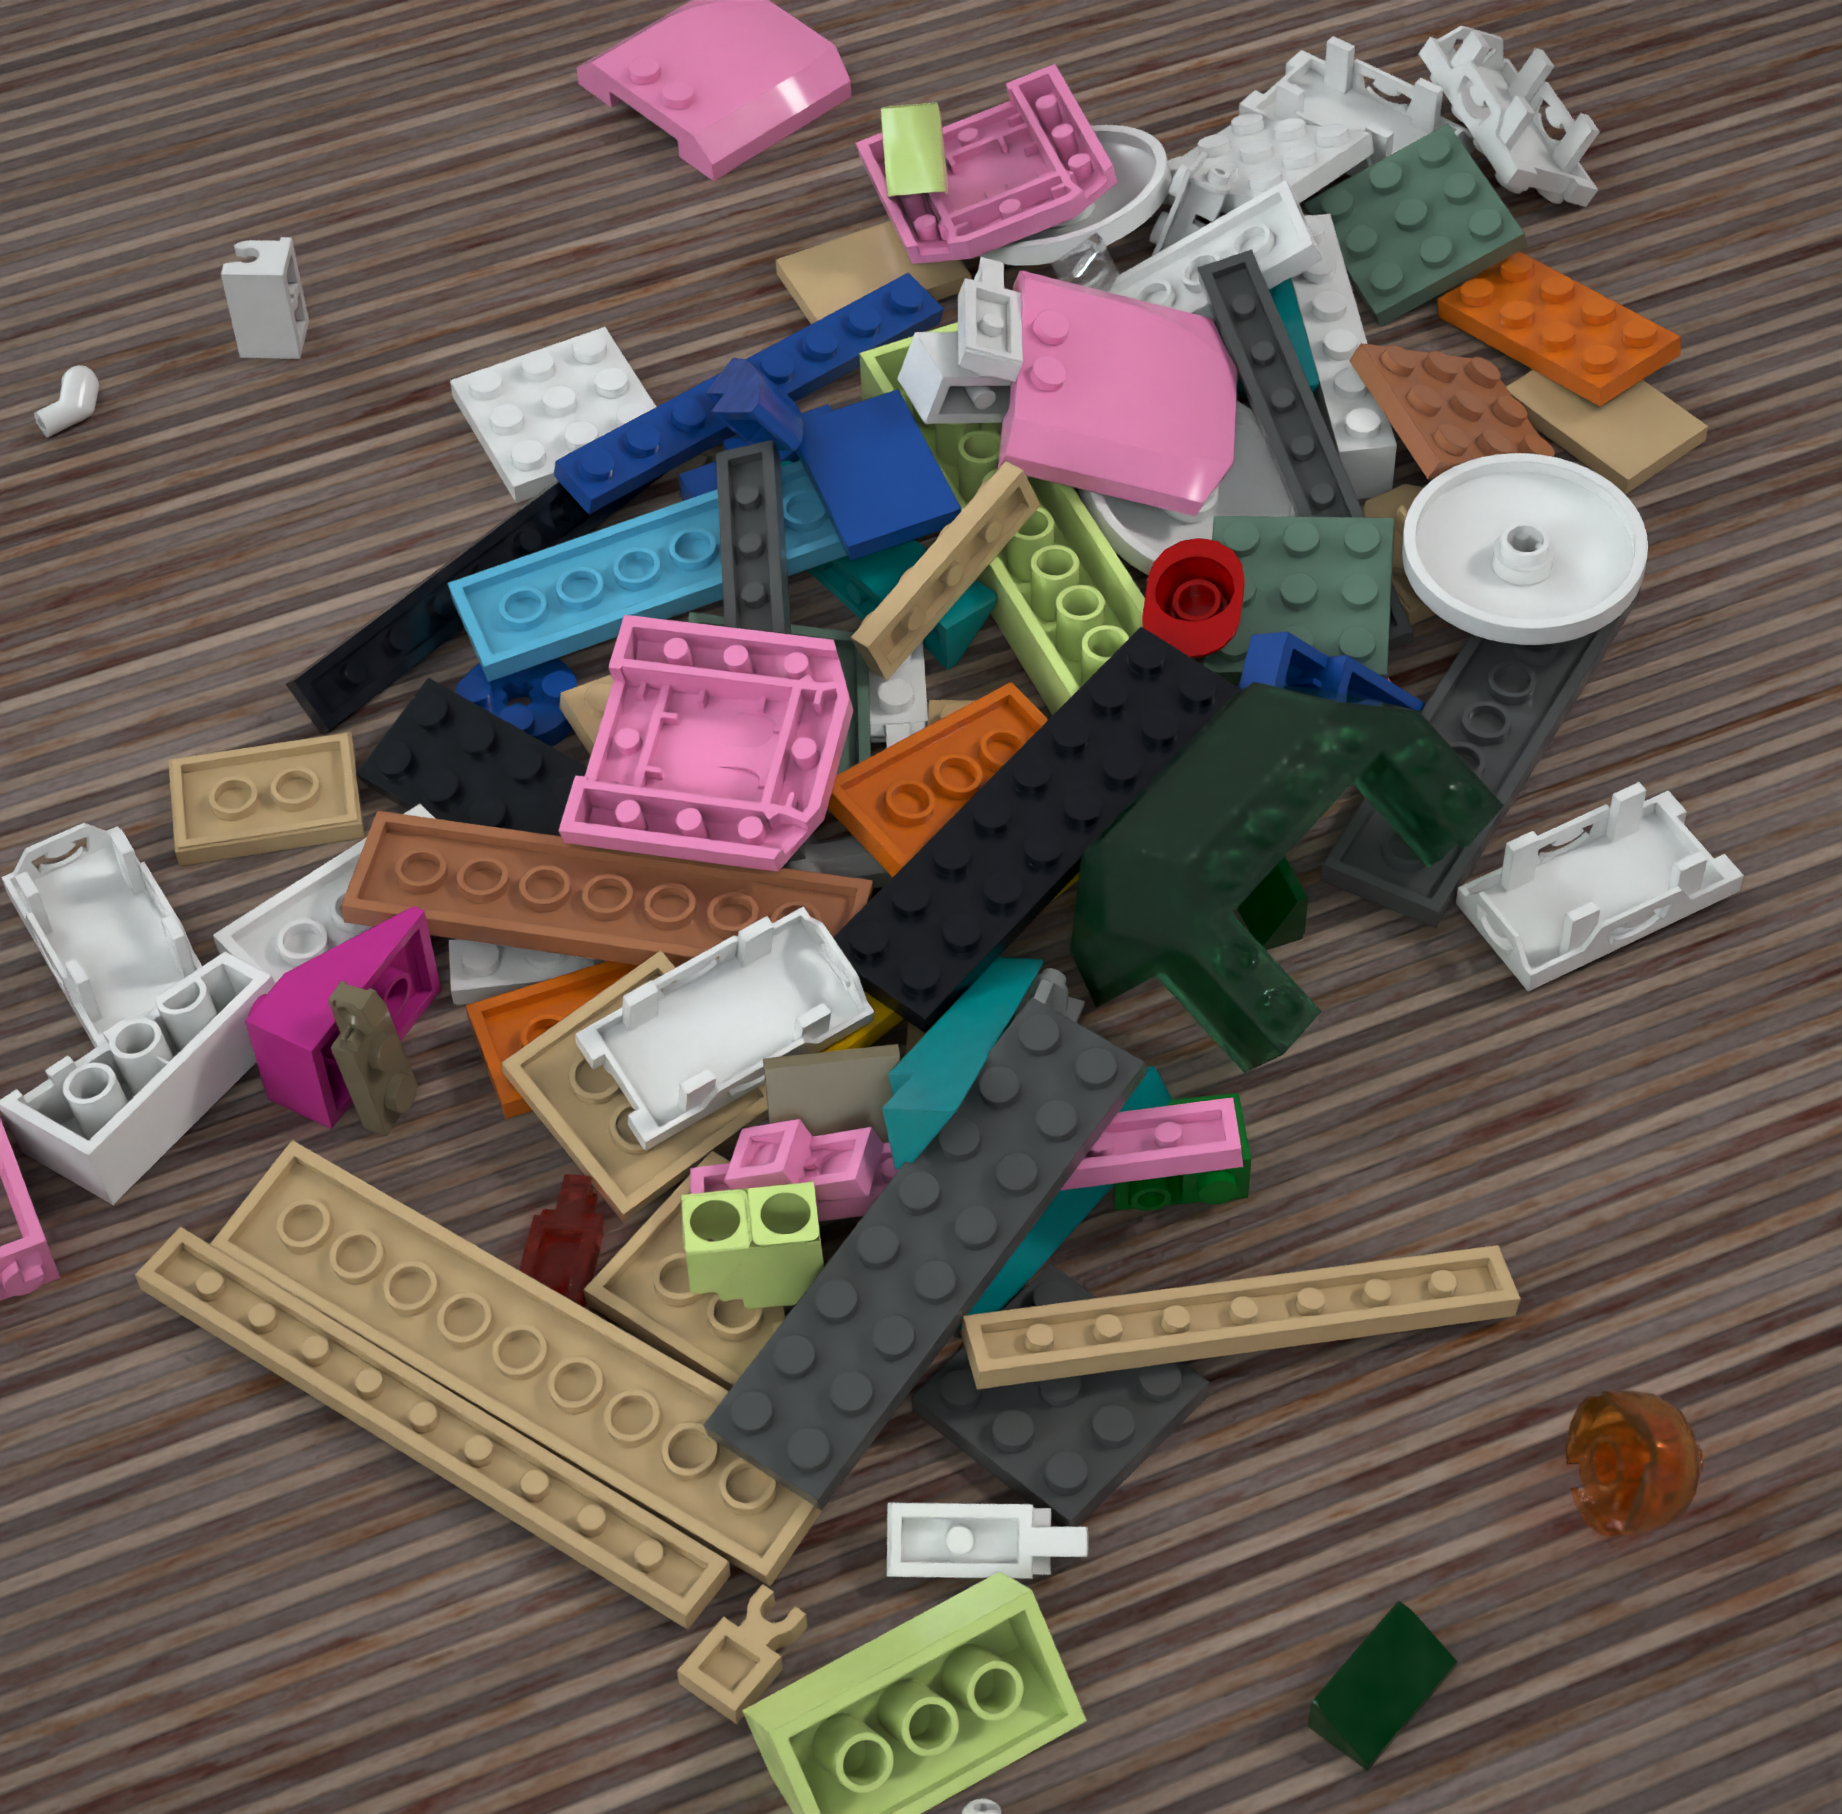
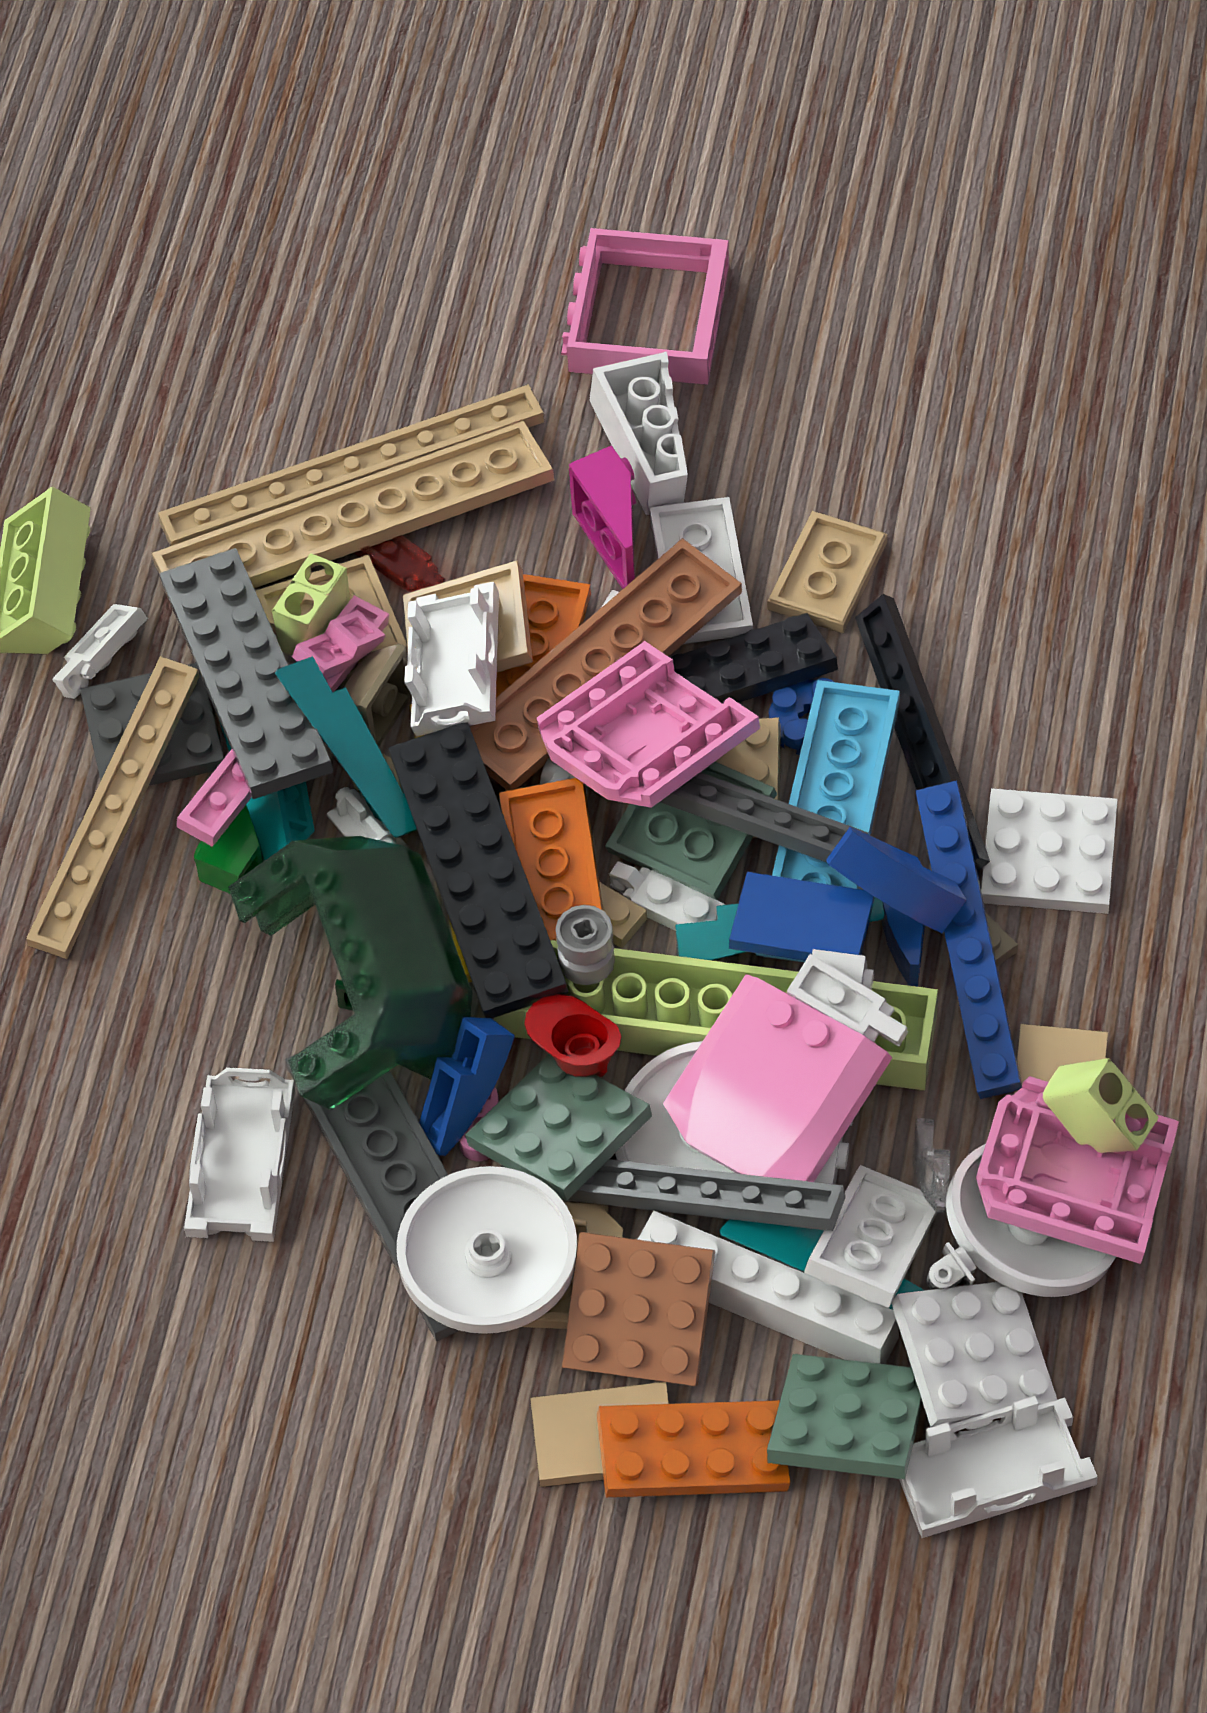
camera: 125 degrees right, 5 degrees up
(101, 926) = (766, 461): white piece -> none
(371, 1058) = (568, 511): dark tan hinge -> none
(741, 1662) = (123, 528): tan plate -> none
(945, 570) = (698, 919): tan plate -> none
(1077, 624) = (585, 944): none -> light grey wheel
(1504, 116) = (916, 1552): white piece -> none

